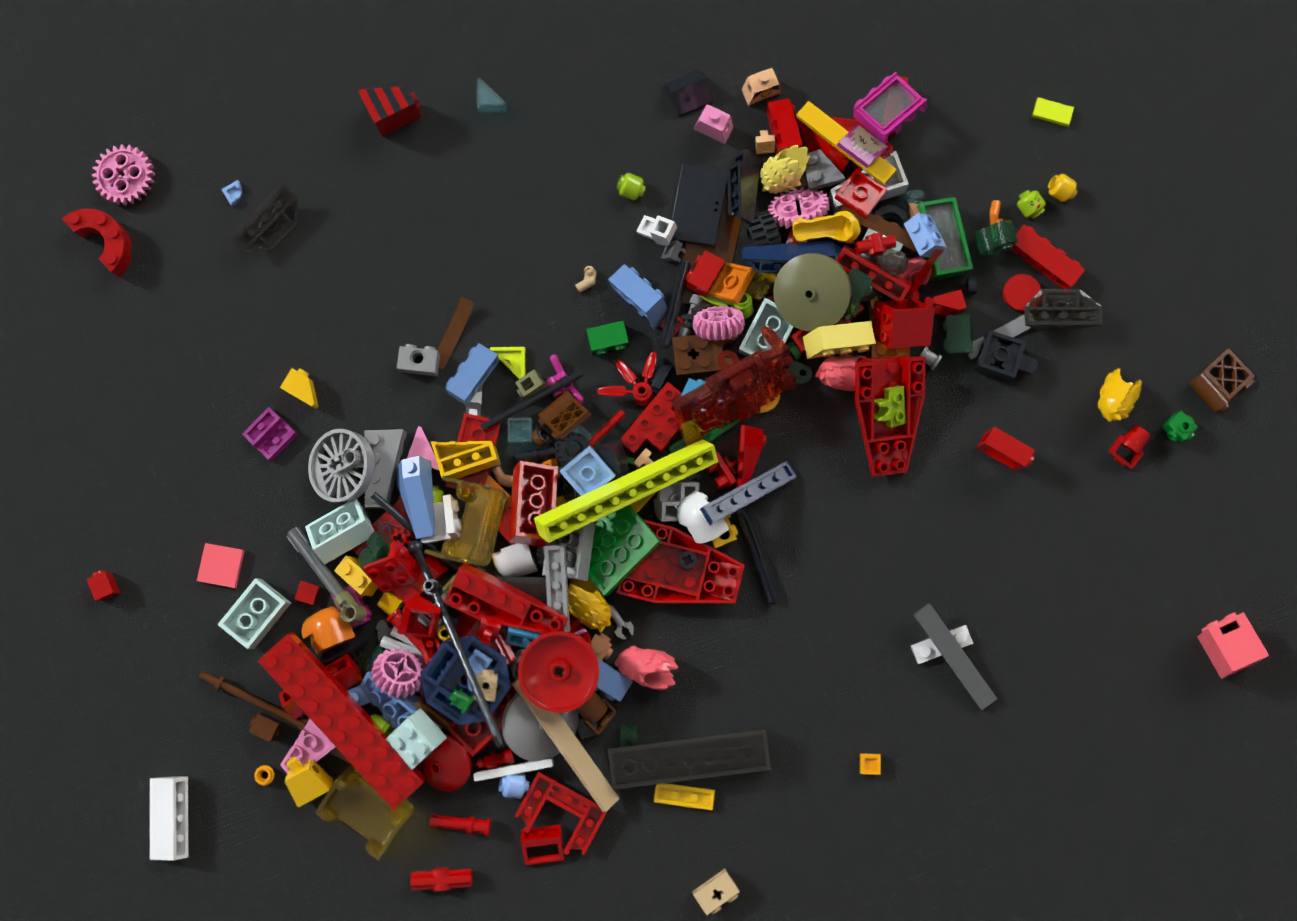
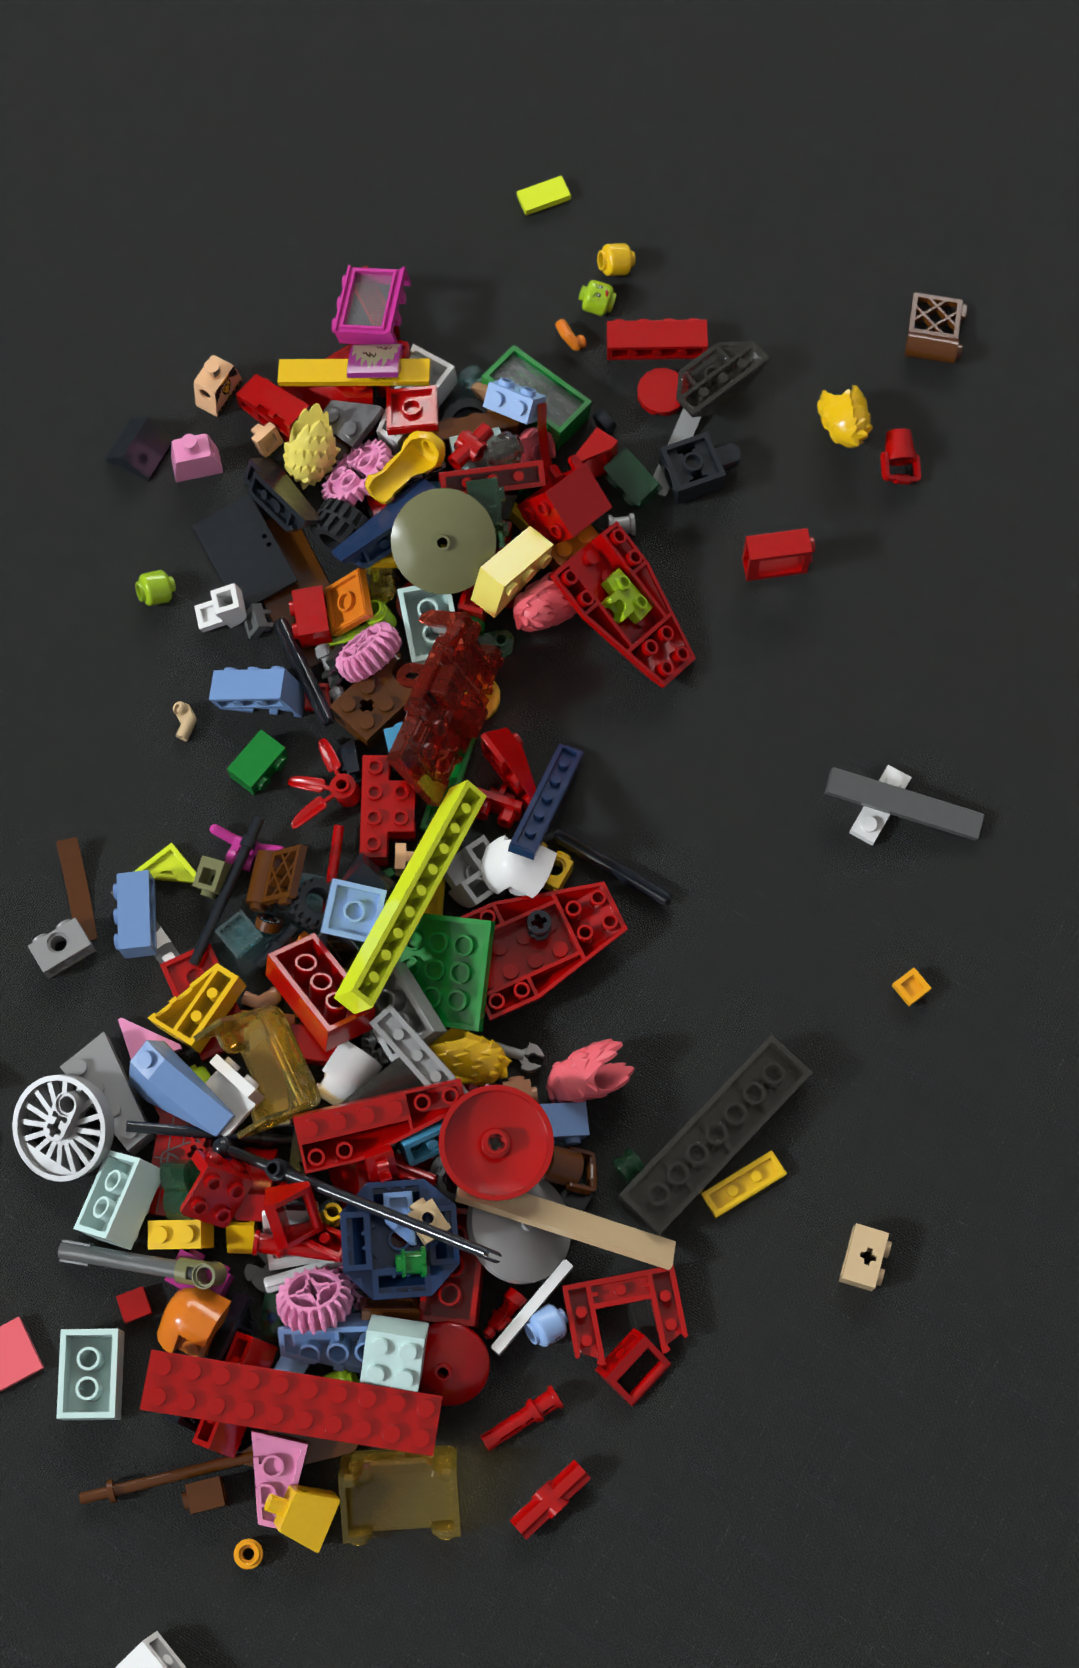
camera: 40 degrees left, 10 degrees down
(995, 238) = (588, 355): clear green brick -> none
(1180, 427) = (932, 402): green brick -> none

